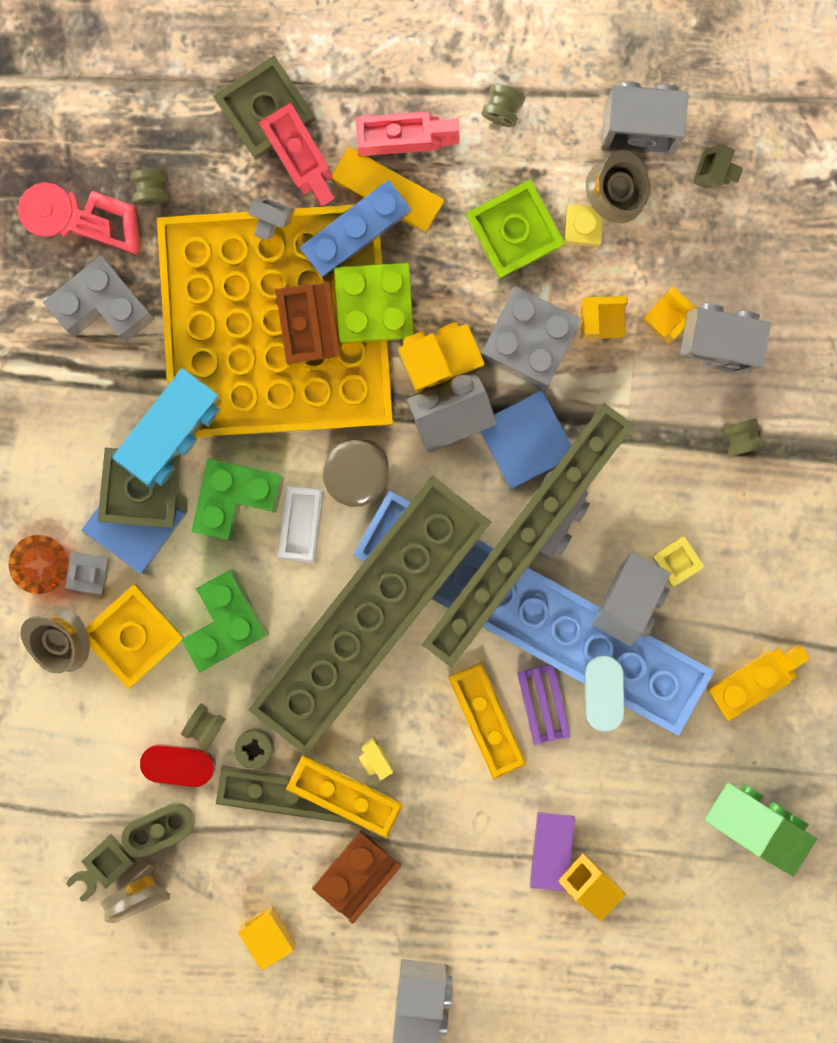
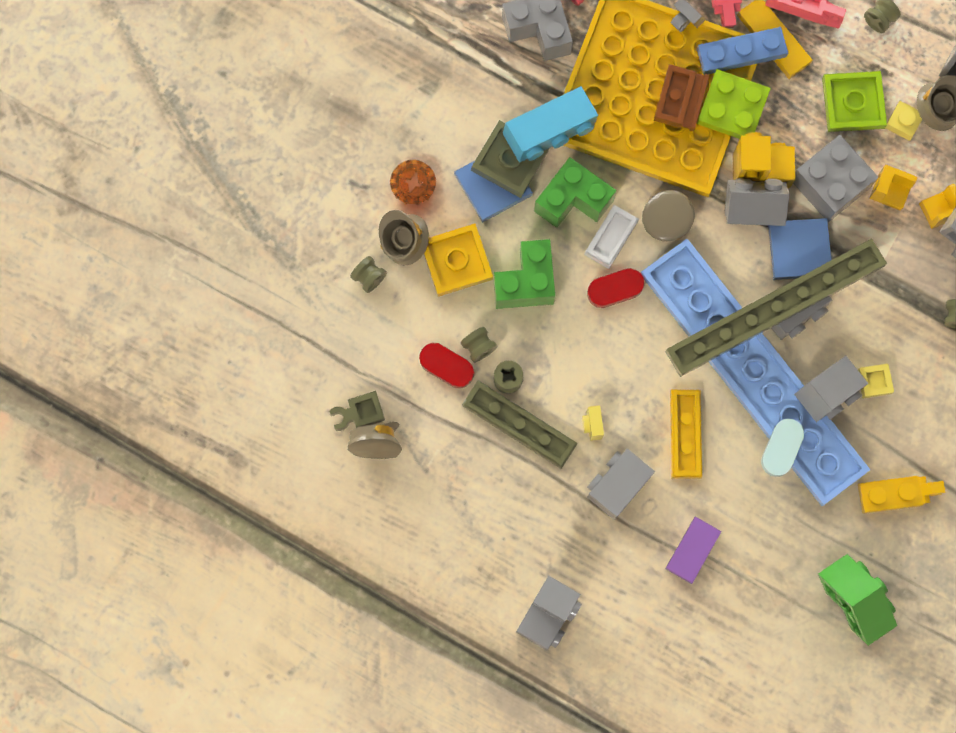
camera: 25 degrees right, 10 degrees down
(37, 701) = (368, 274): none -> olive wheel
(87, 573) = (444, 204): light grey tile -> none
(159, 830) = (412, 402): olive plate -> none
(267, 938) = (456, 514): yellow panel -> none
(328, 583) = (615, 288): none -> red tile
(344, 796) = (559, 438): yellow tile -> none
(356, 876) = (540, 503): dark orange plate -> none
(370, 615) = (635, 317): olive plate -> none
(436, 816) = (620, 483): none -> light grey brick
(550, 734) = (737, 416): medium lavender tile -> none
(592, 887) = (713, 585): yellow brick -> none

